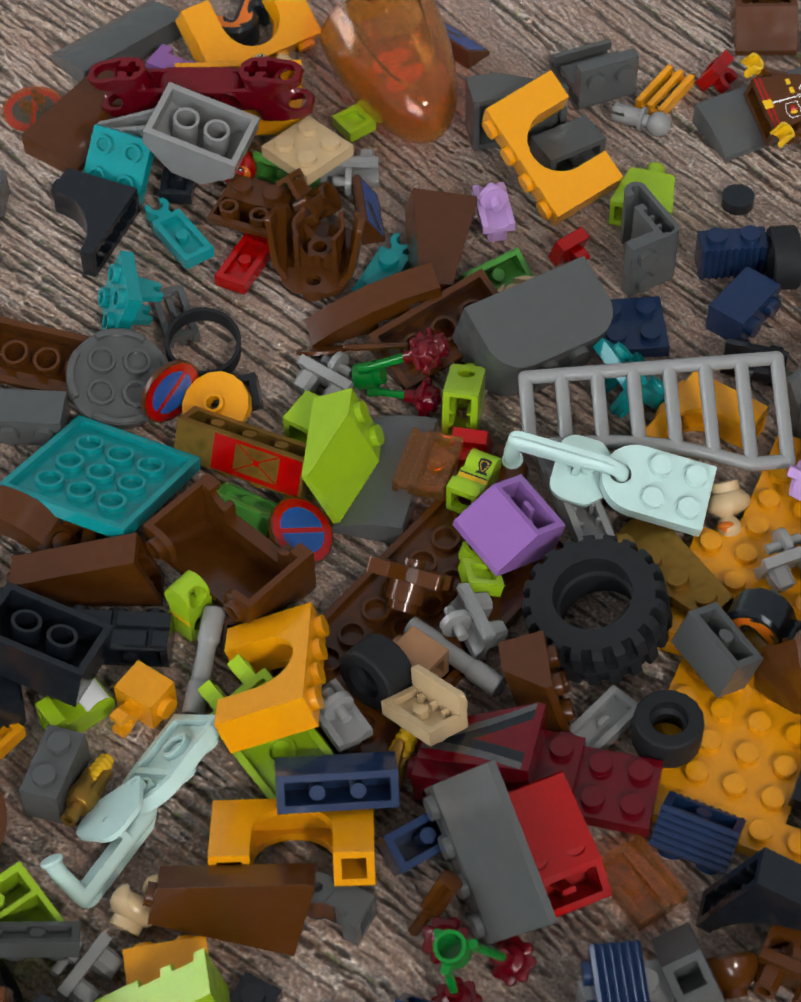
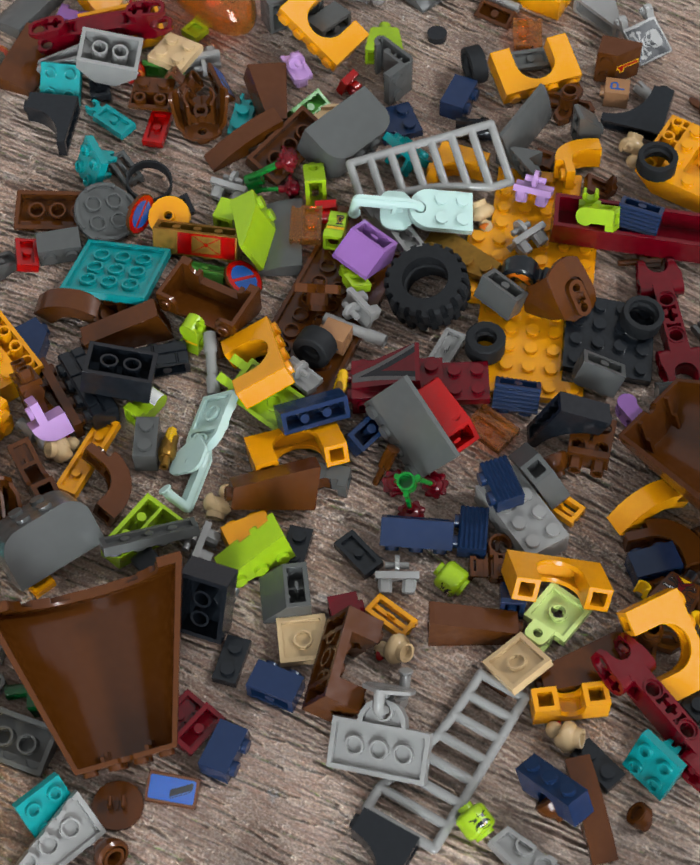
camera: 15 degrees left, 5 degrees up
(144, 697) = (183, 391): light orange brick -> none
(332, 349) = (228, 170): reddish brown piece -> none
(428, 708) = (351, 359): tan bracket -> none
(534, 677) = (404, 331): reddish brown slope -> none
(729, 251) = (442, 67): dark blue brick -> none

